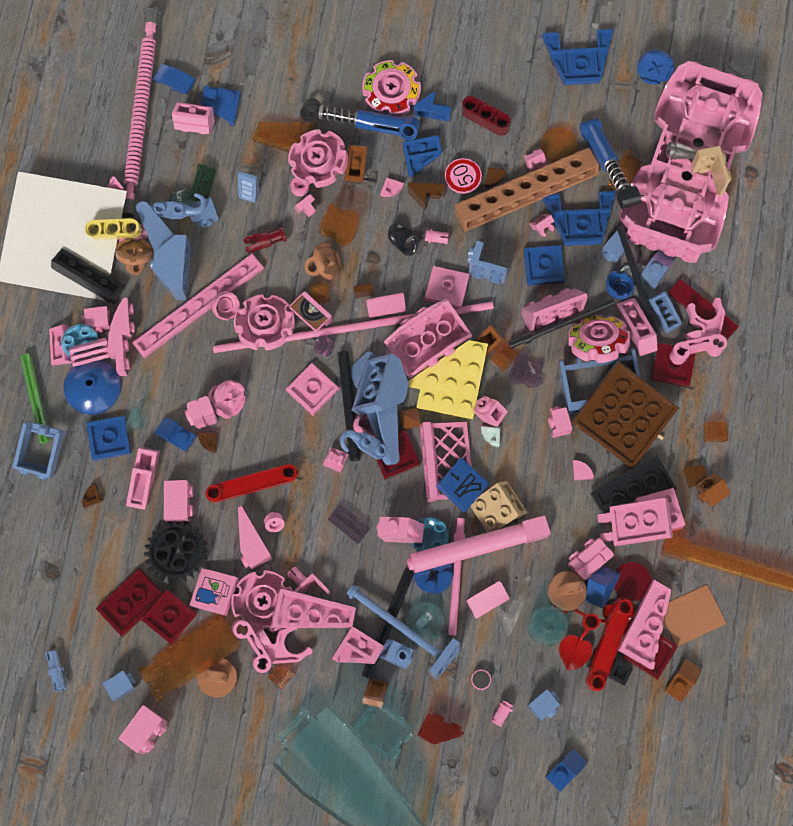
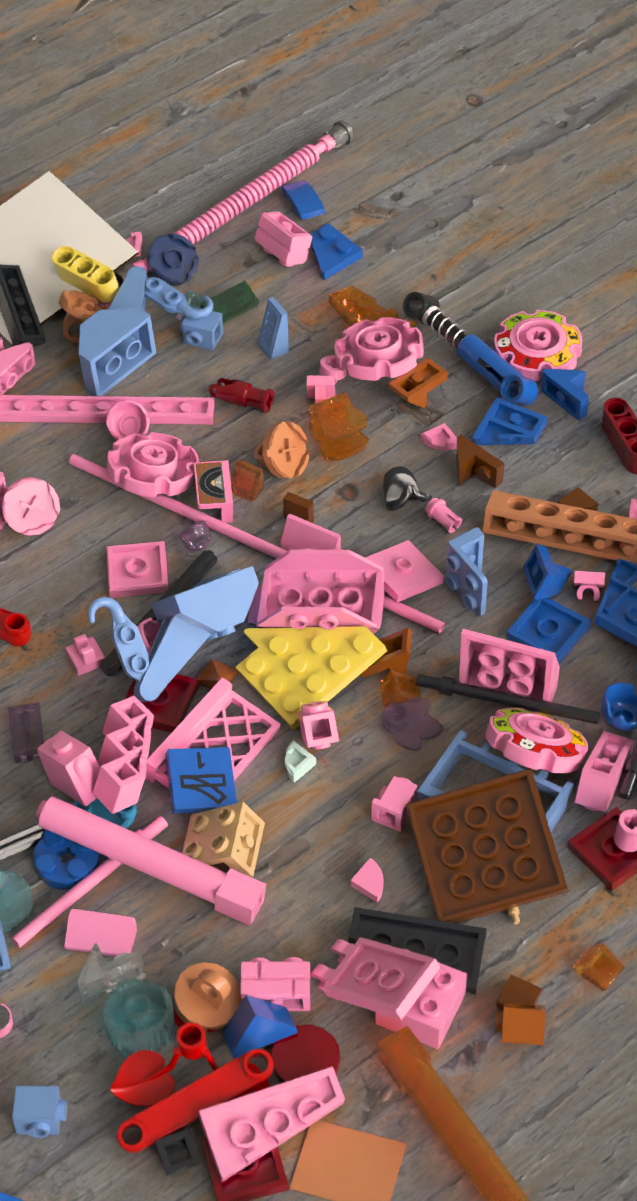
camera: 40 degrees right, 25 degrees down
(144, 178) = (172, 259): none -> dark blue tile
(420, 501) = (124, 754): none -> bright pink brick
(463, 176) = (537, 474): piece -> none
(517, 237) = (543, 575): none -> blue slope

